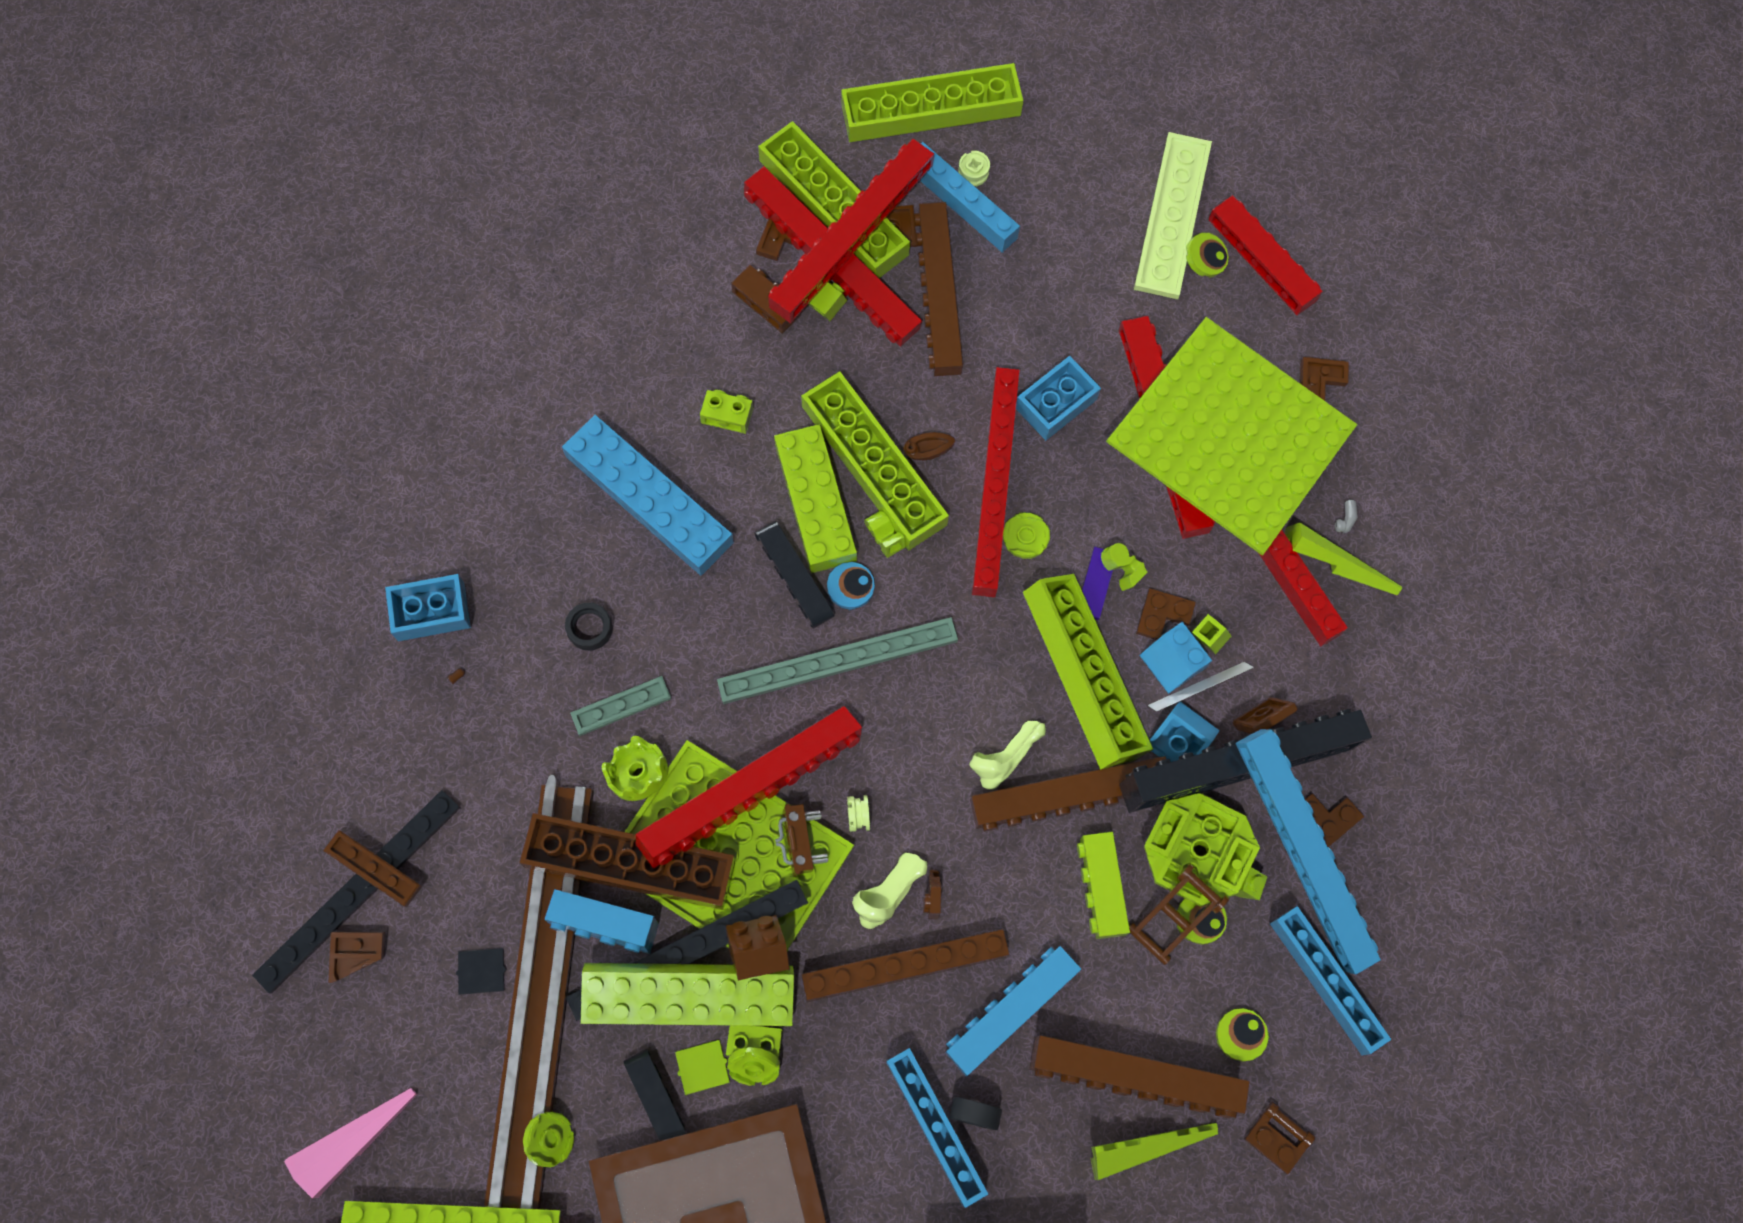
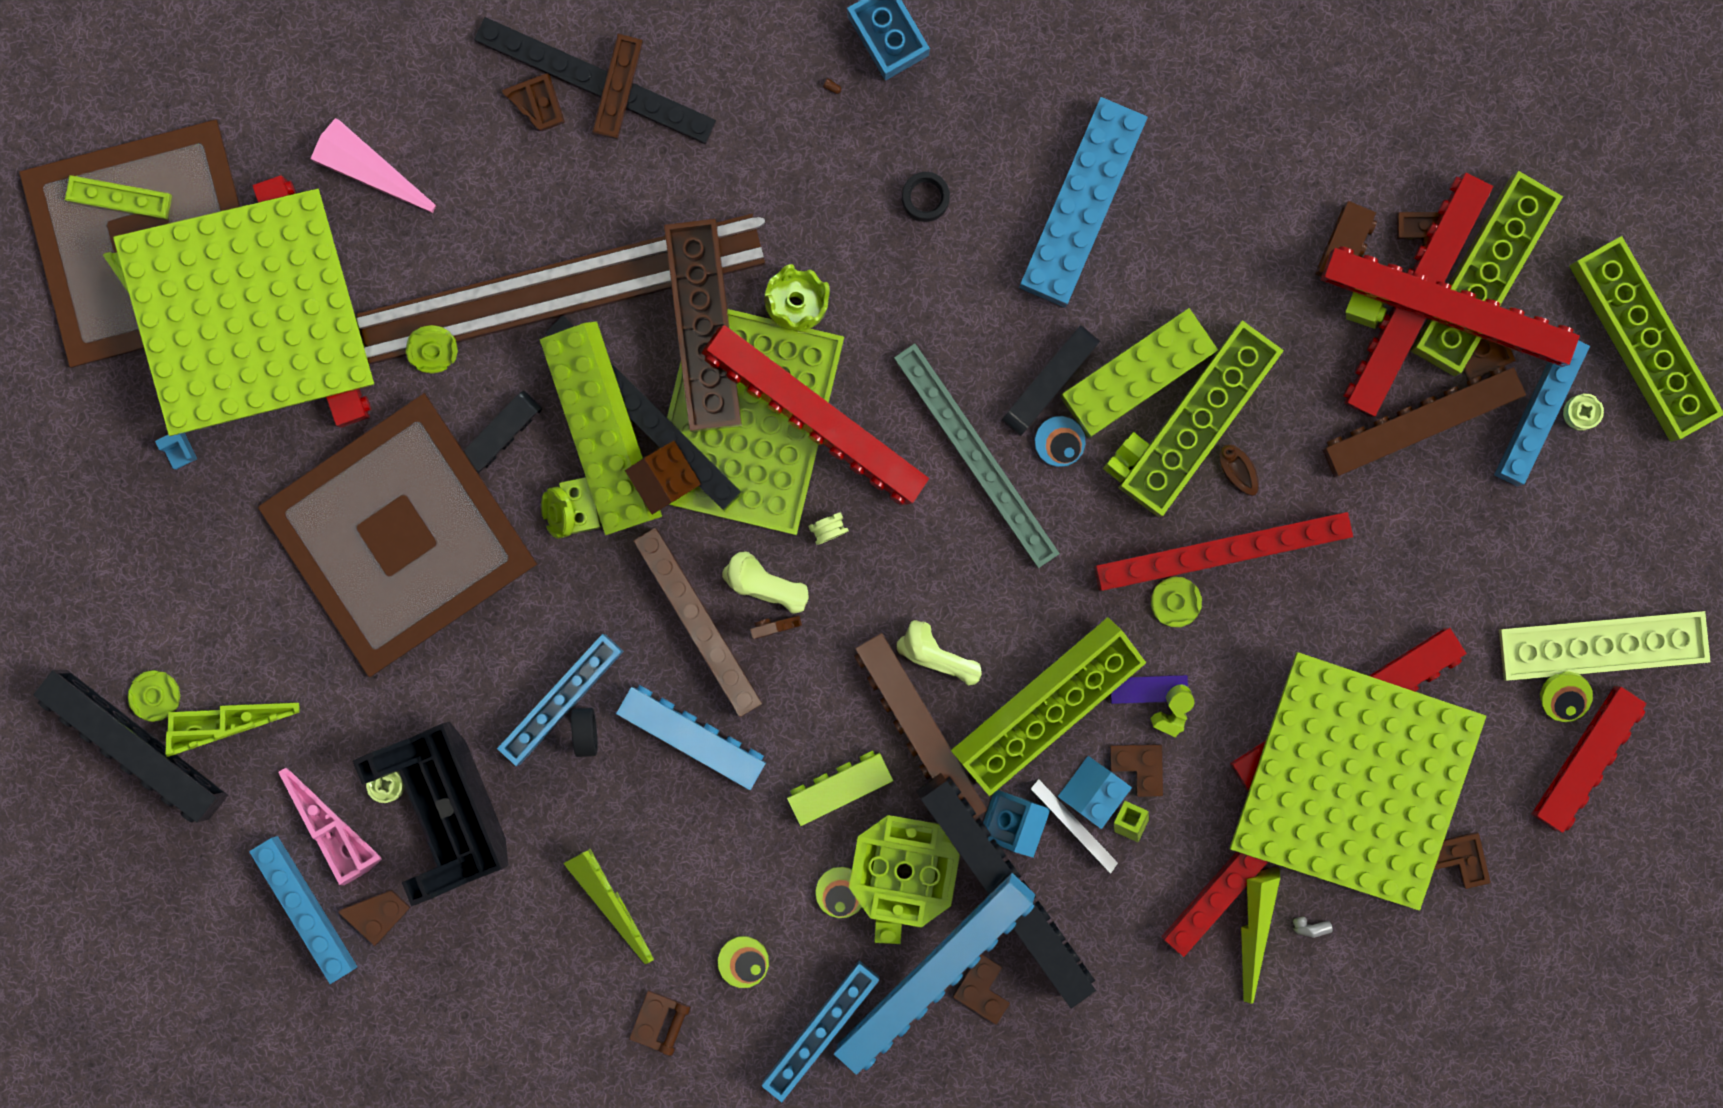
camera: 70 degrees right, 15 degrees up
(480, 971) = (560, 226): black piece -> none
(602, 920) = (640, 322): dark azure wedge -> none
(620, 706) = (857, 259): sand green tile -> none
(702, 1067) = (543, 465): lime piece -> none
(726, 411) = (1203, 248): lime brick -> none
(798, 839) = (781, 479): reddish brown piece -> none
(1057, 398) = (1338, 587): dark azure brick -> none
(1139, 1075) = (669, 874): reddish brown brick -> none
(1215, 905) = (870, 864): reddish brown piece -> none
(1264, 715) = (1062, 897): reddish brown tile -> none

